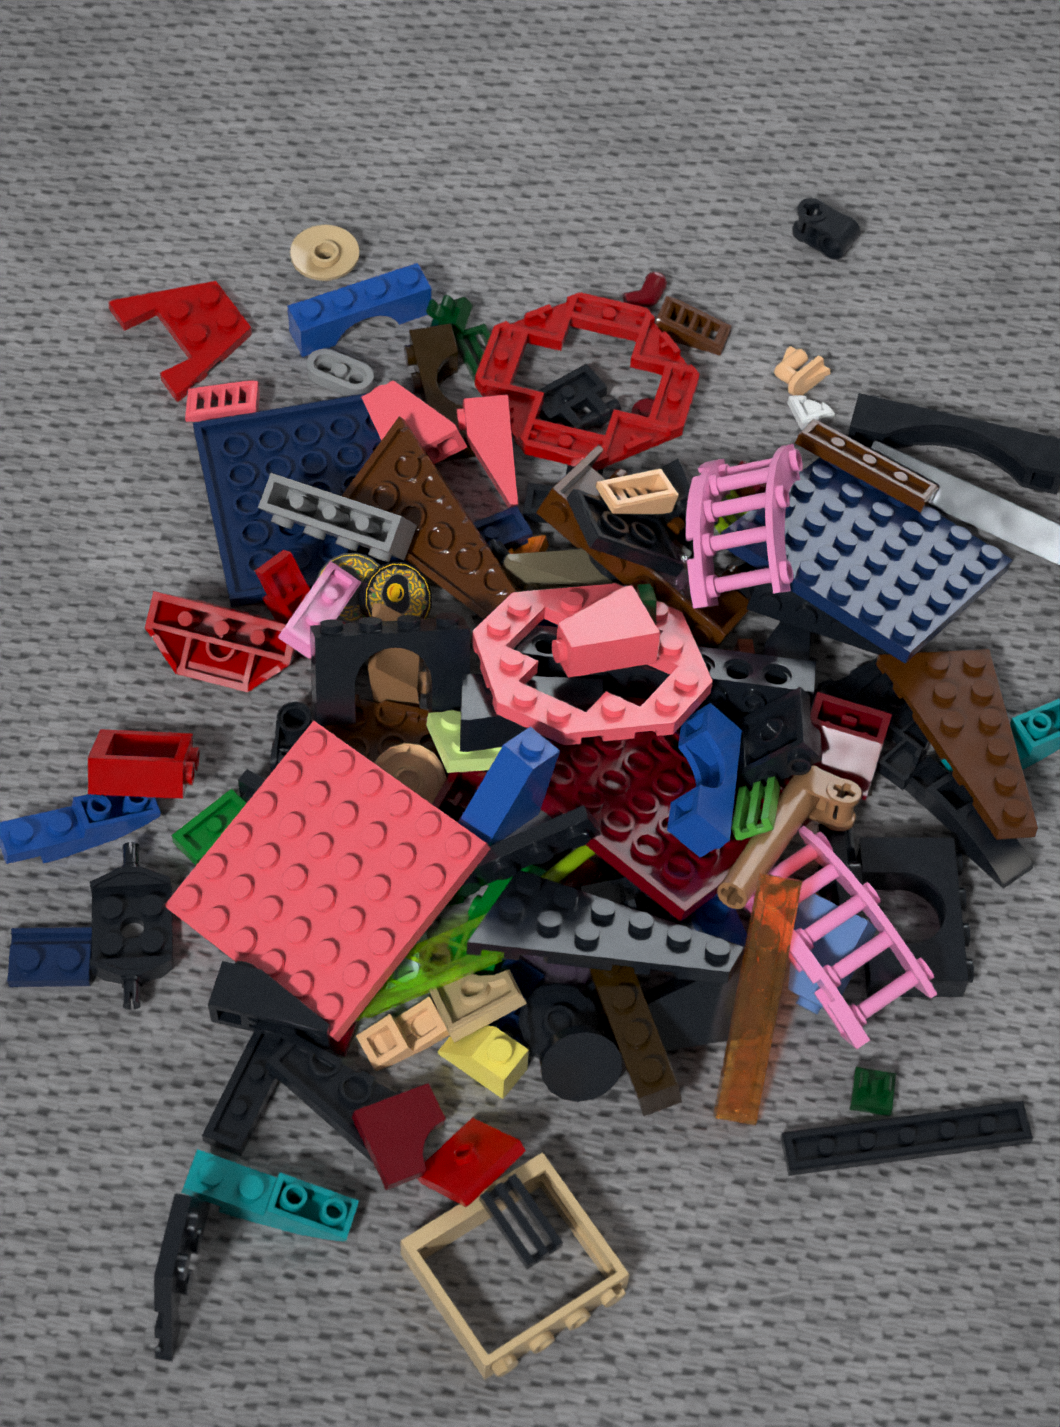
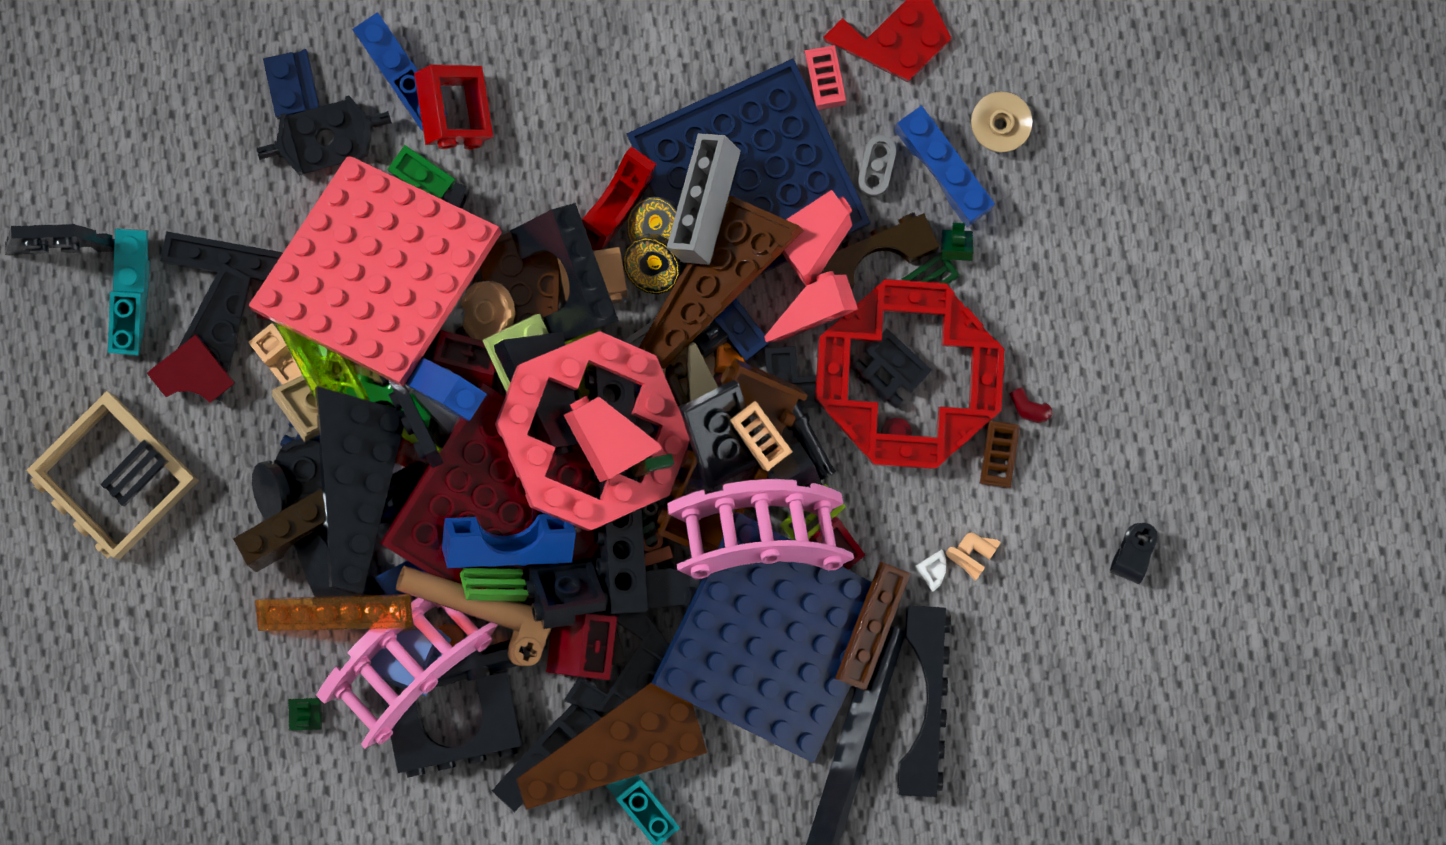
camera: 80 degrees right, 25 degrees up
(217, 642) = (586, 135): red wedge -> none
(257, 1003) = (269, 239): black slope -> none
(284, 736) = (505, 212): black piece -> none
(321, 603) = (616, 206): bright pink tile -> none
(470, 1161) = (180, 427): red plate -> none
(488, 1058) = (267, 425): light yellow slope -> none
(906, 1138) = (272, 744): black tile -> none

